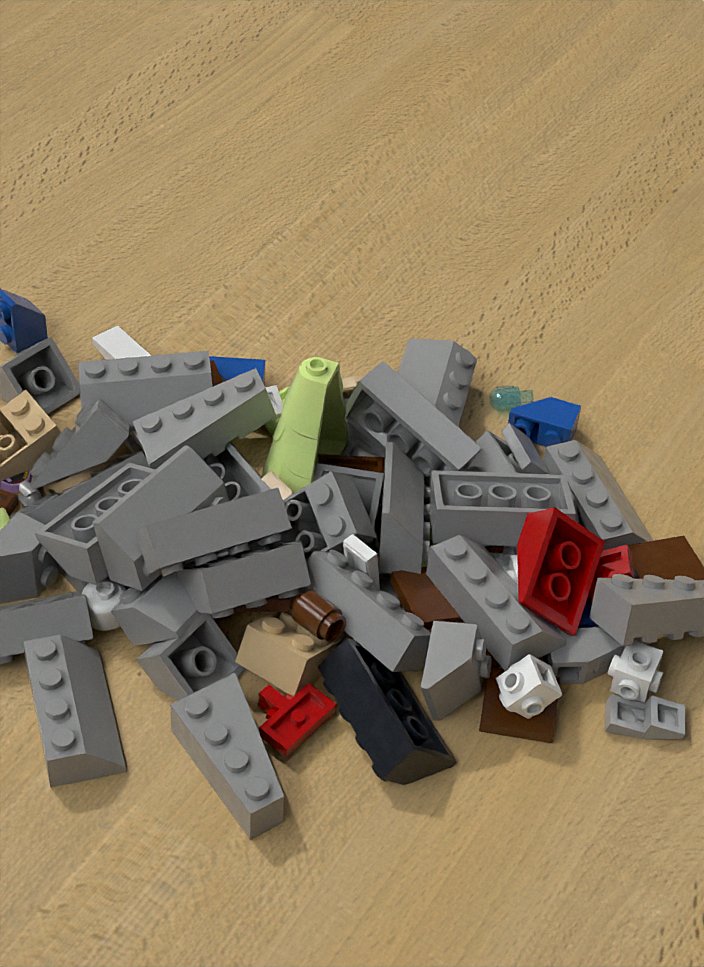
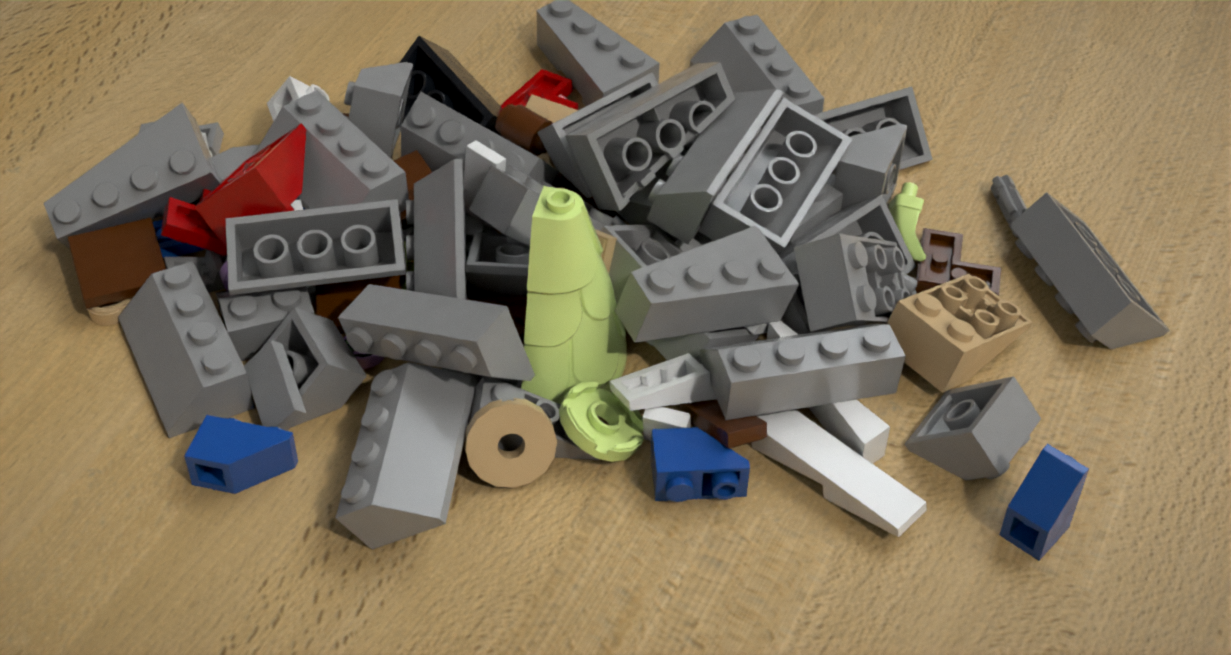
camera: 175 degrees right, 0 degrees up
(508, 397) = (289, 501): clear light blue cylinder -> none

